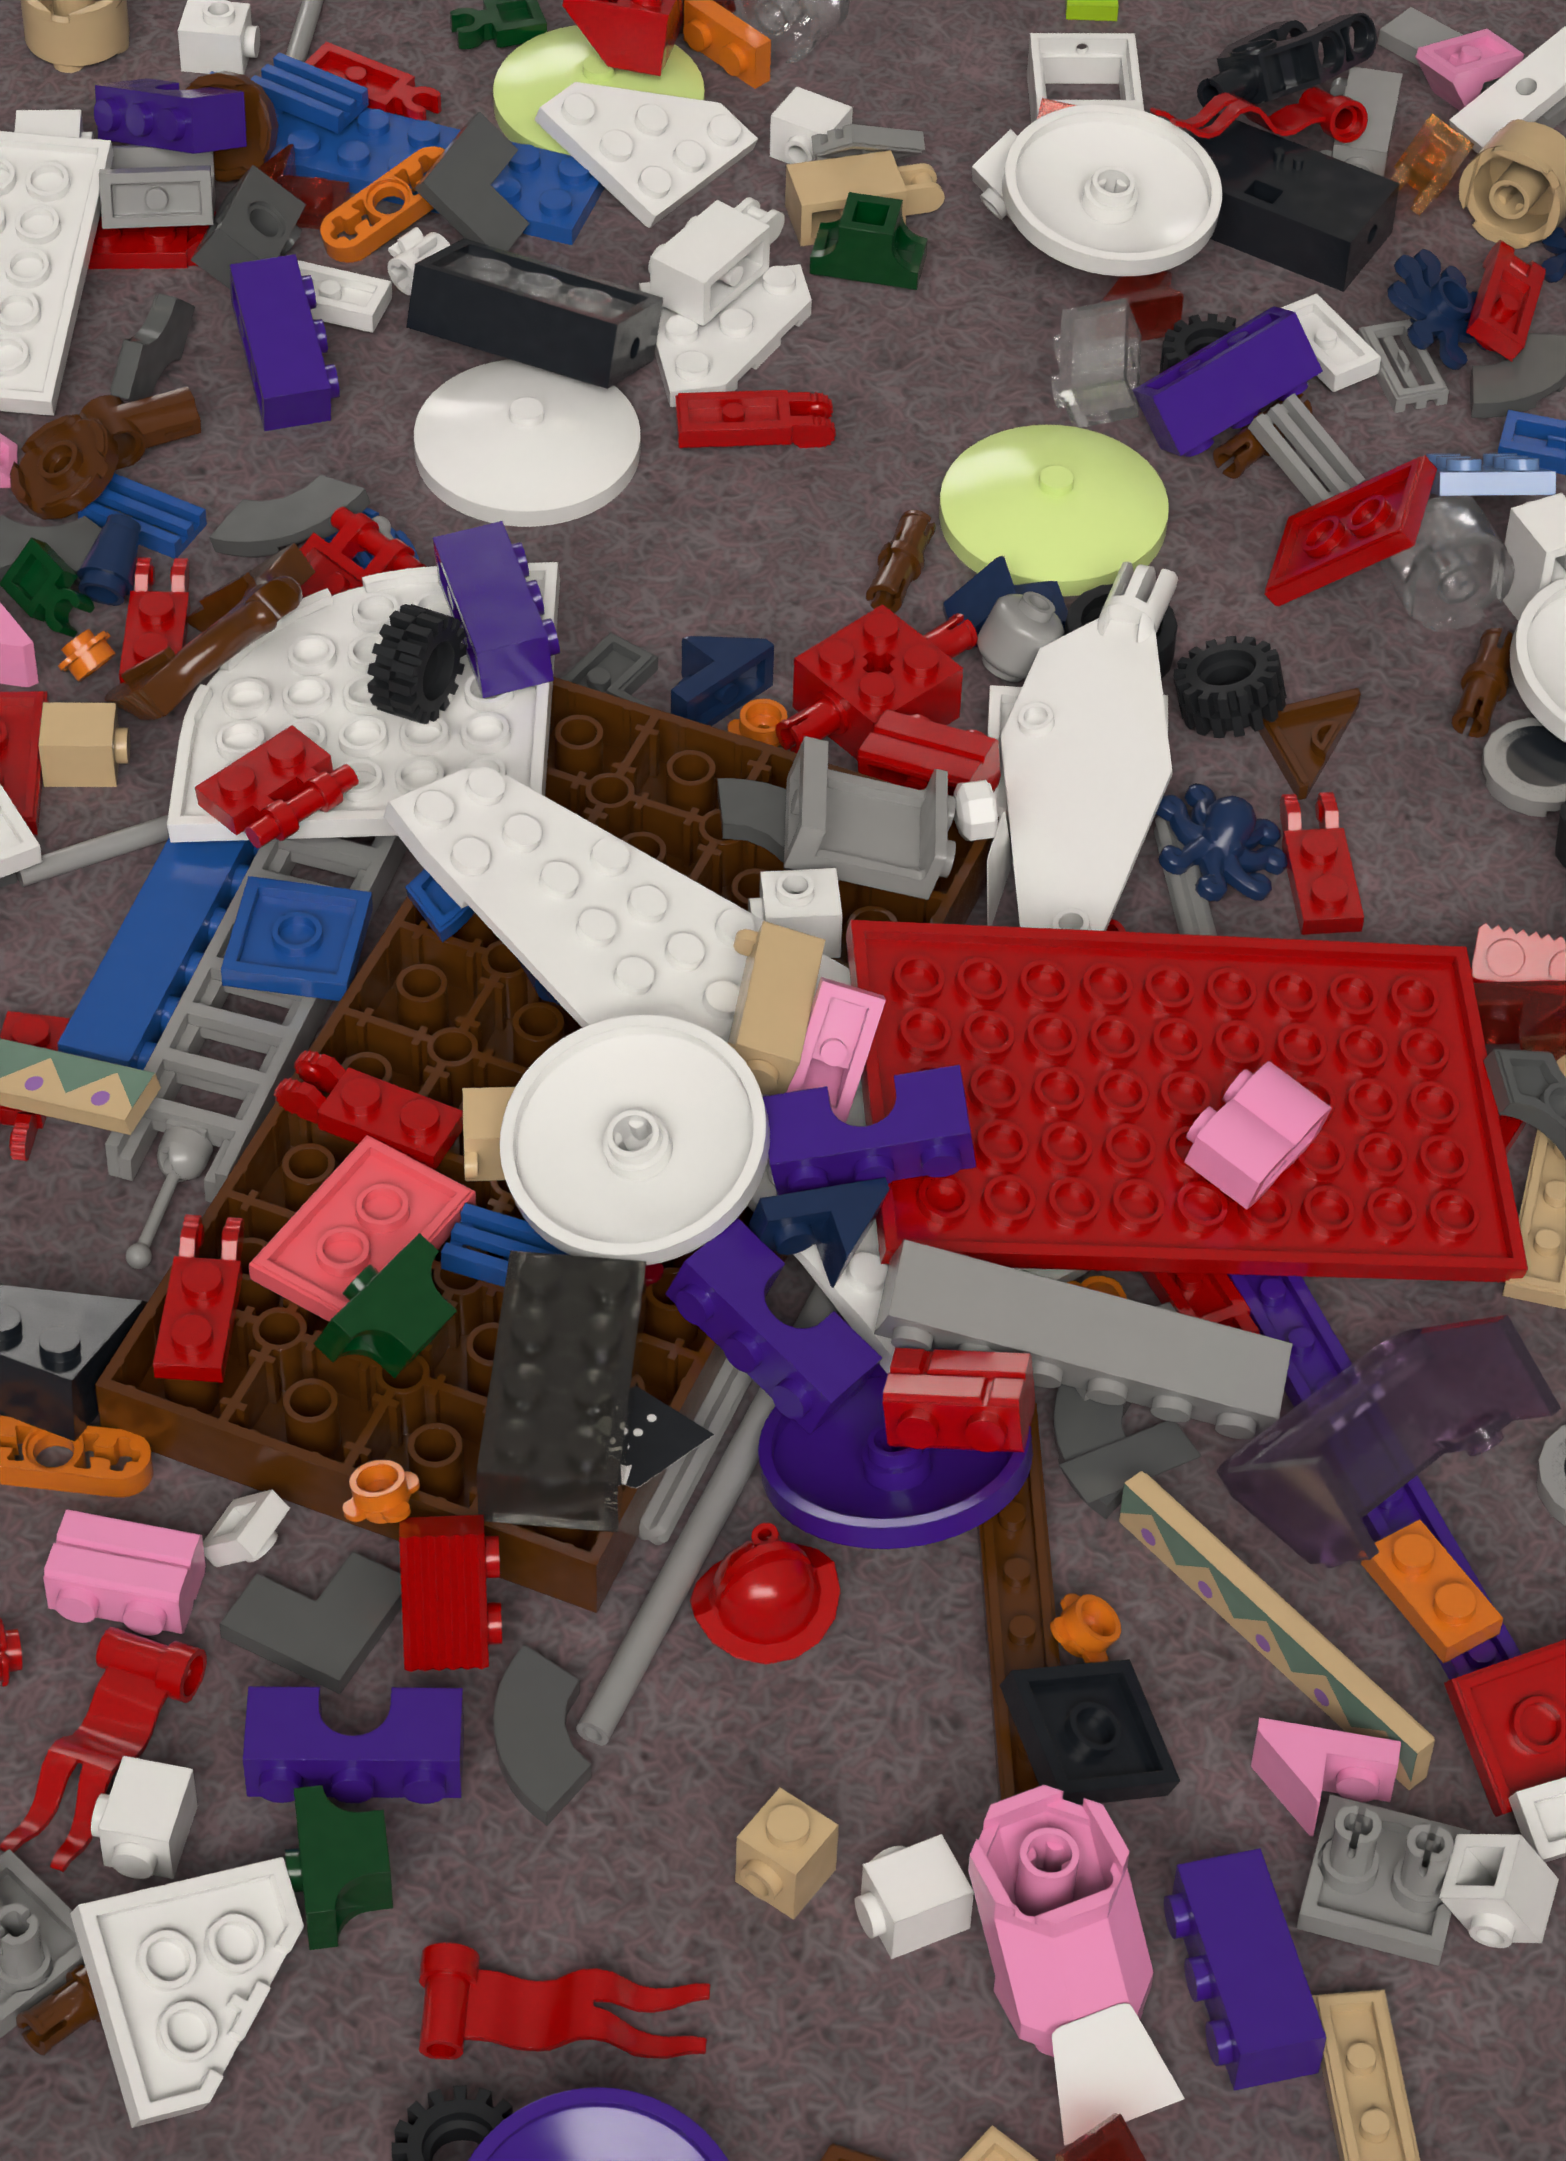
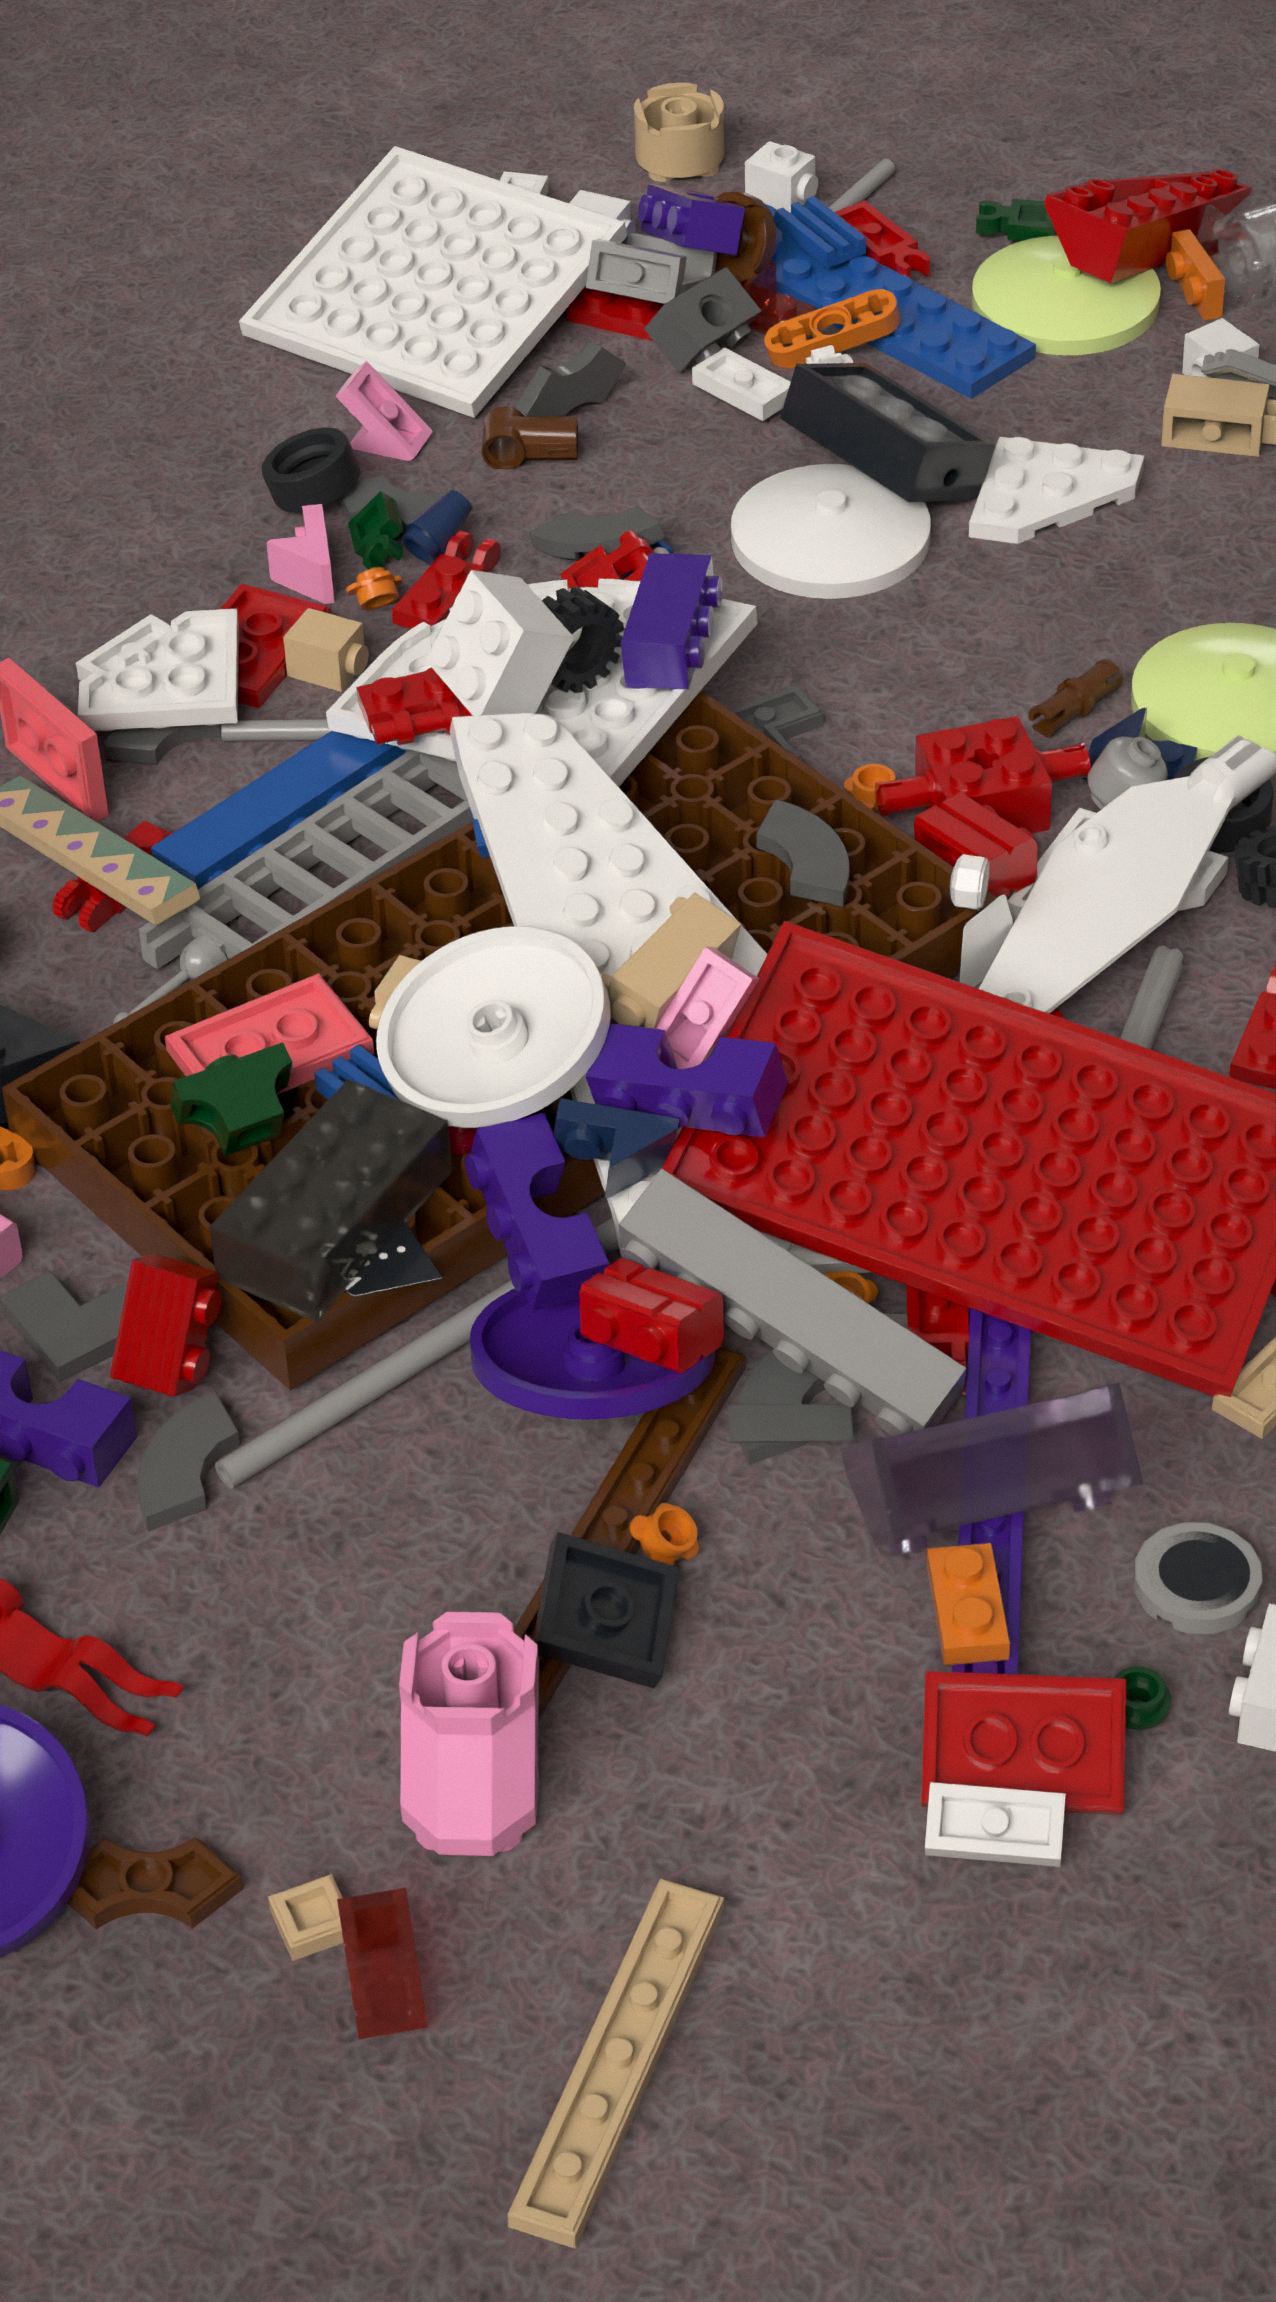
camera: 30 degrees right, 5 degrees down
(64, 467) = (450, 452): reddish brown plate -> none
(149, 508) = (498, 501): blue tile -> none
(200, 1305) = (114, 1052): red hinge -> none
(228, 623) = (410, 607): reddish brown piece -> none
(245, 1529) = (62, 1238): white plate -> none
(283, 342) = (673, 404): dark purple brick -> none
(297, 938) = (374, 823): blue plate -> none
(358, 700) = (499, 646): none -> white brick
(369, 1107) = (334, 954): red hinge -> none
(380, 1492) = (150, 1229): orange plate -> none
(462, 188) = (891, 325): dark grey tile -> none
(644, 144) = (1072, 335): white plate -> none
(683, 1475) = (437, 1304): light grey axle -> none
(714, 258) = (1062, 427): white brick -> none
(721, 676) = (861, 738): dark blue slope -> none
(754, 419) = (1025, 560): red hinge -> none
(767, 1598) = (426, 1422): red helmet -> none
(786, 1853) = (302, 1611): tan brick -> none
(802, 902) = (766, 902): white brick -> none
(867, 827) = (864, 865): light grey panel -> none
(870, 244) = (1210, 453): dark green brick -> none
(914, 1896) = (370, 1680): white brick -> none
(1108, 2068) = (452, 1868): white sticker -> none
(1221, 842) = (1197, 984): dark blue animal -> none
(1245, 1970) = (612, 1836): dark purple brick -> none
(1256, 1133) = (1033, 1193): bright pink brick -> none
(1272, 1624) = (822, 1593): tan tile -> none
(1306, 1759) = (784, 1701): bright pink slope -> none
(1380, 1880) = (780, 1811): light grey plate -> none
(1499, 1889) = (862, 1851): white brick -> none

